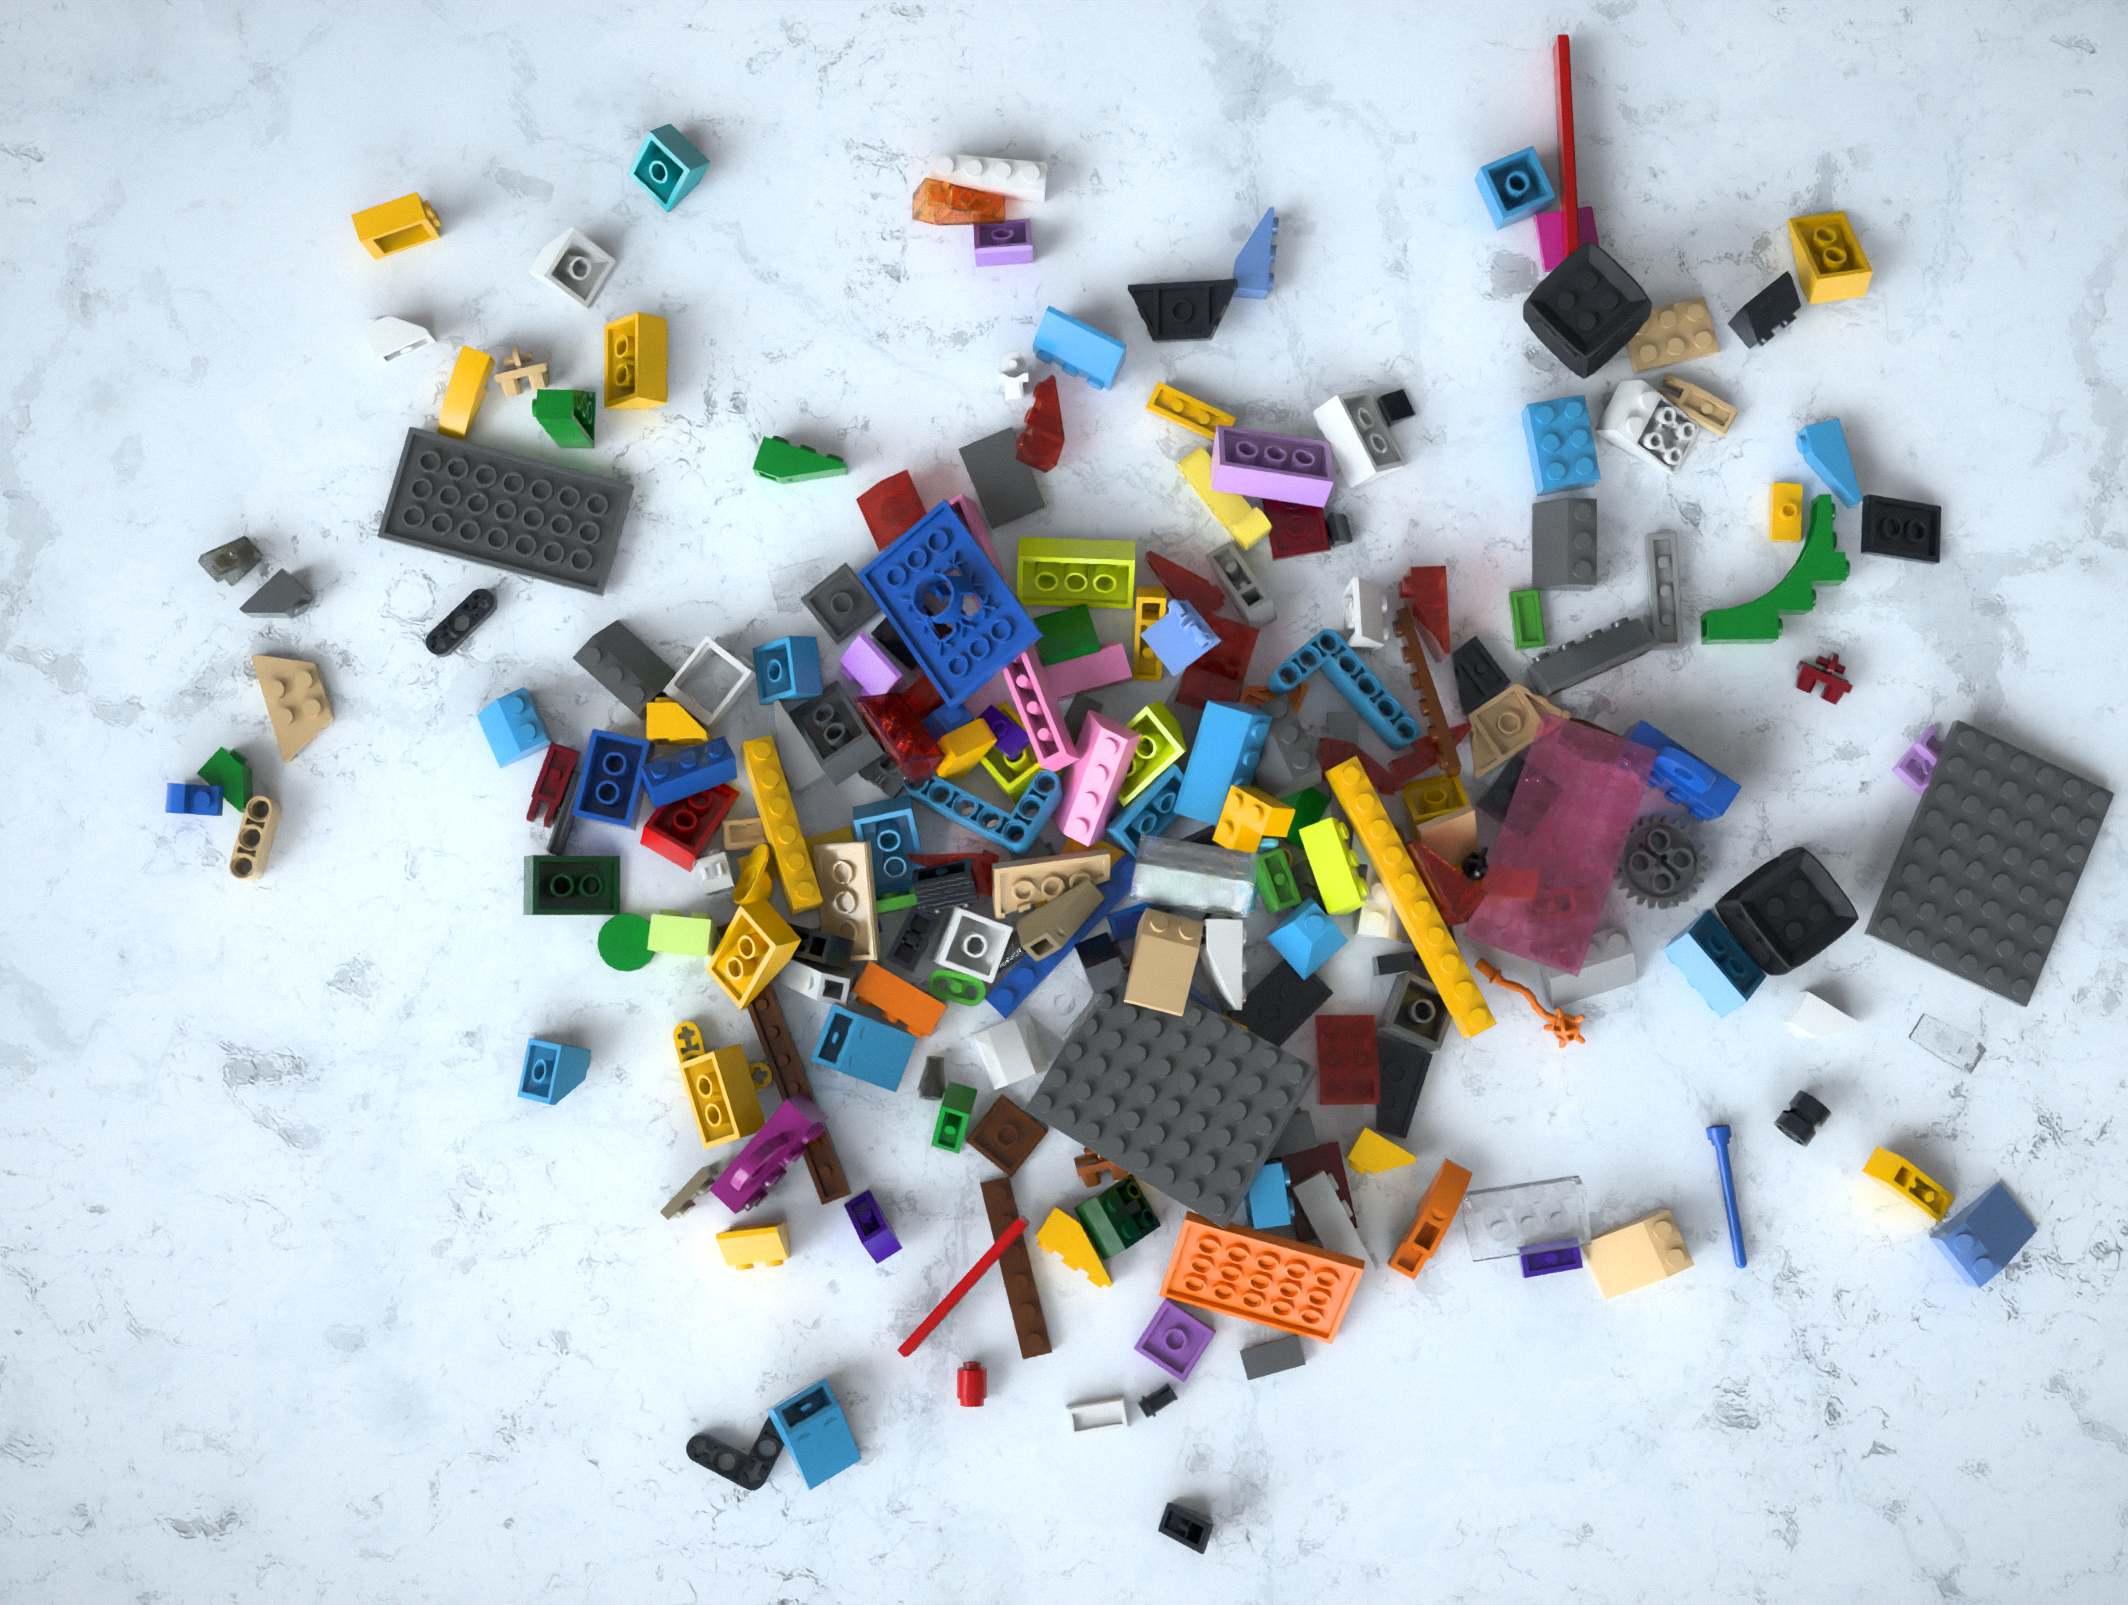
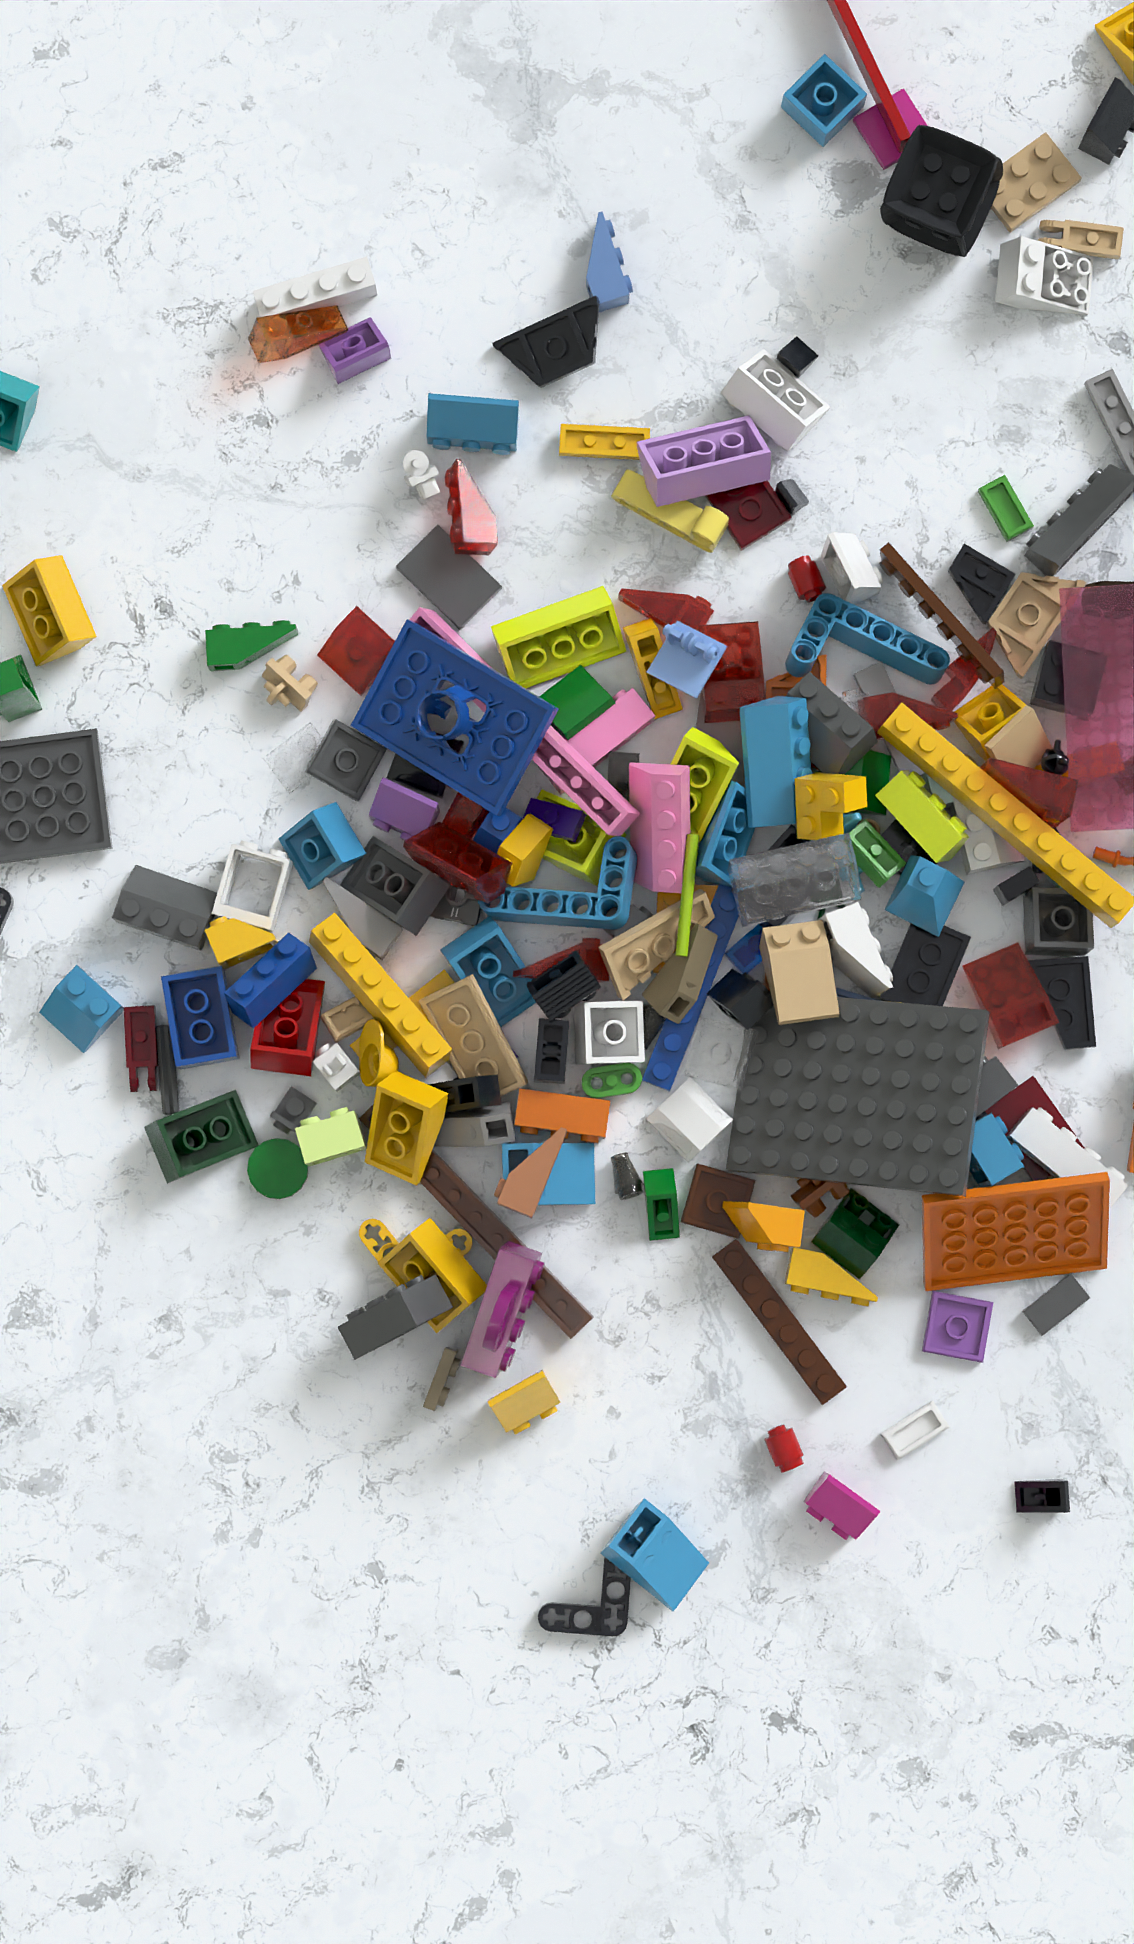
camera: 25 degrees left, 0 degrees up
(552, 1070) = (258, 1320): dark azure slope -> none
(661, 895) = (291, 1110): none -> dark grey bracket
(670, 1120) = (395, 1316): none -> dark grey brick
(813, 515) = (284, 686): none -> tan hips
(836, 1050) = (528, 1180): none -> nougat slope
(872, 1227) = (627, 1339): dark purple slope -> none
(891, 902) = (516, 1025): bright green plate -> none
(964, 1286) = (738, 1358): red tile -> none
(1000, 1459) = (840, 1506): none -> dark pink slope
(1042, 1179) = (767, 1225): none -> light orange slope
(1091, 850) = (687, 895): none -> lime bar
(1157, 1400) = (965, 1390): black pin -> none
(1242, 586) = (723, 587): light grey slope -> none
(1320, 609) = (806, 578): none -> red brick
(1375, 1153) = (1072, 1071): yellow slope -> none
(1427, 600) = (904, 527): clear red slope -> none
(1560, 445) = (969, 329): dark azure brick -> none
(1564, 544) = (1012, 422): dark grey slope -> none

